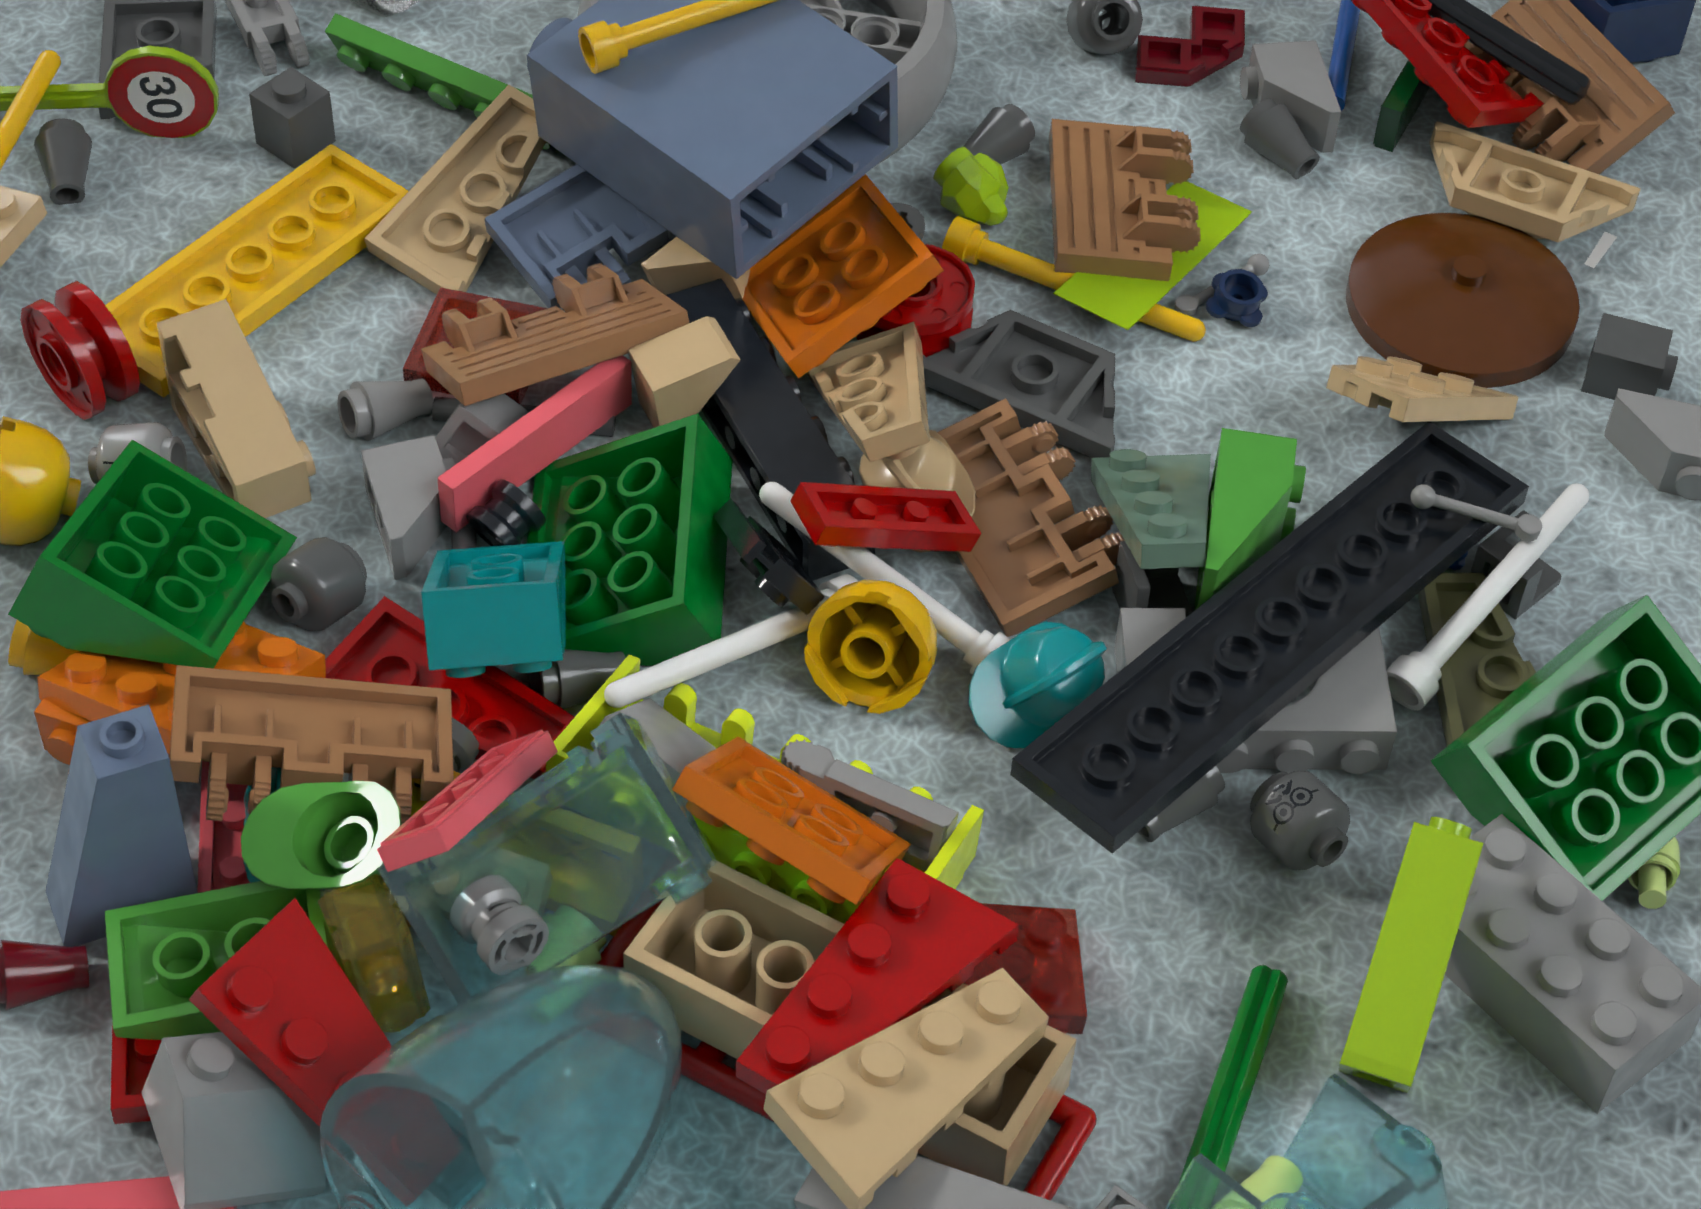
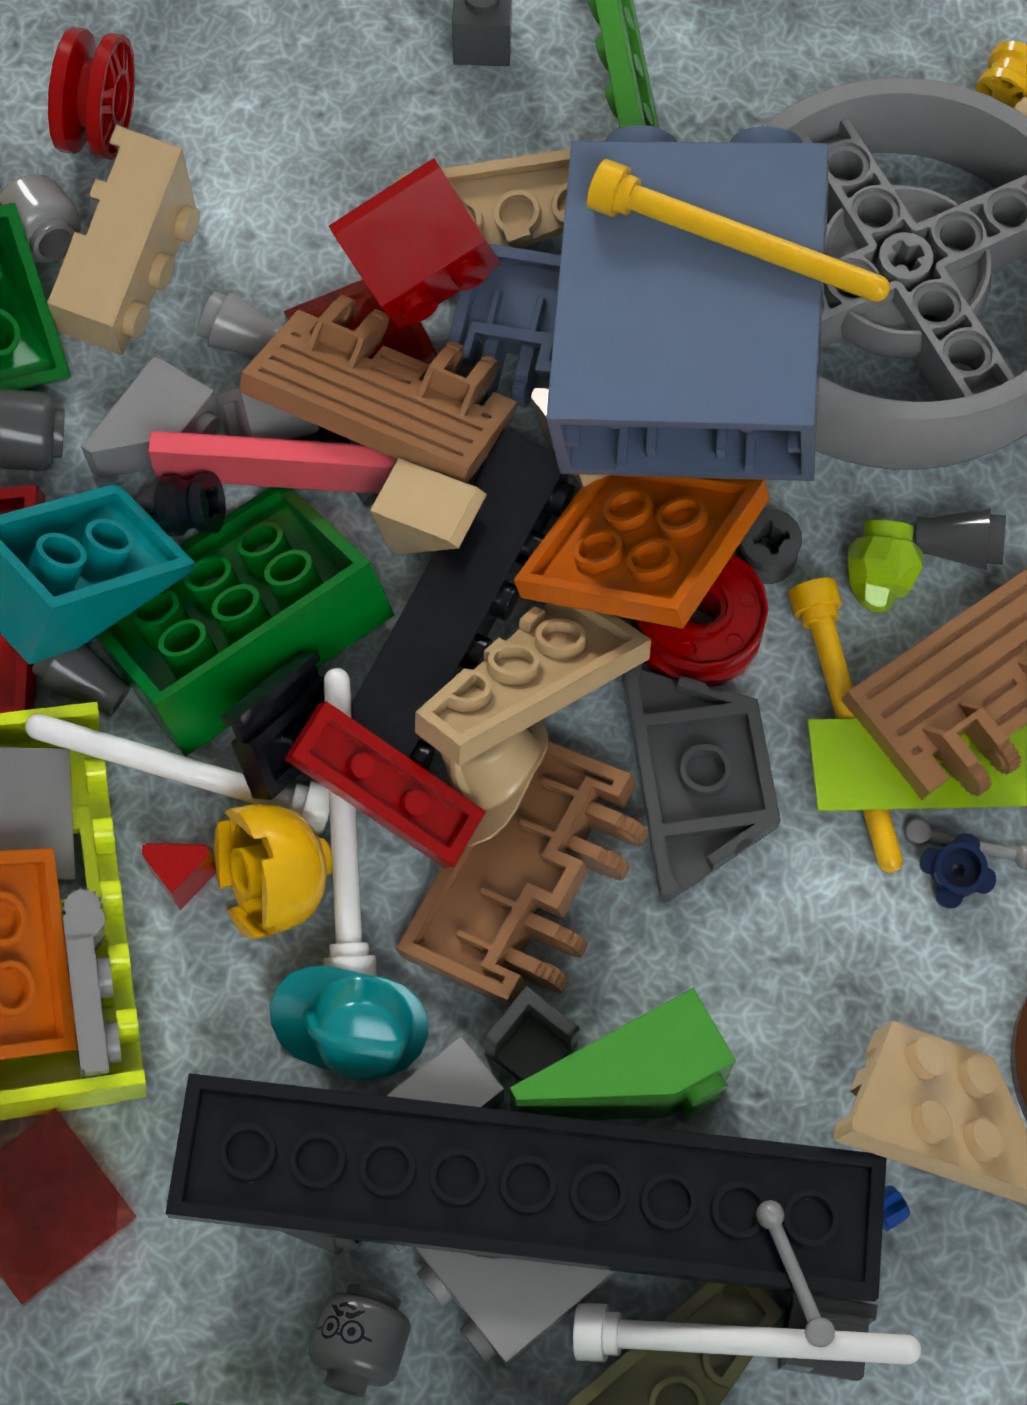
camera: 55 degrees right, 20 degrees up
(260, 253) = (310, 120): yellow plate -> none
(468, 230) = (416, 245): none -> red slope
(810, 709) = (180, 868): none -> red slope
(1157, 504) = (599, 984): sand green wing -> none

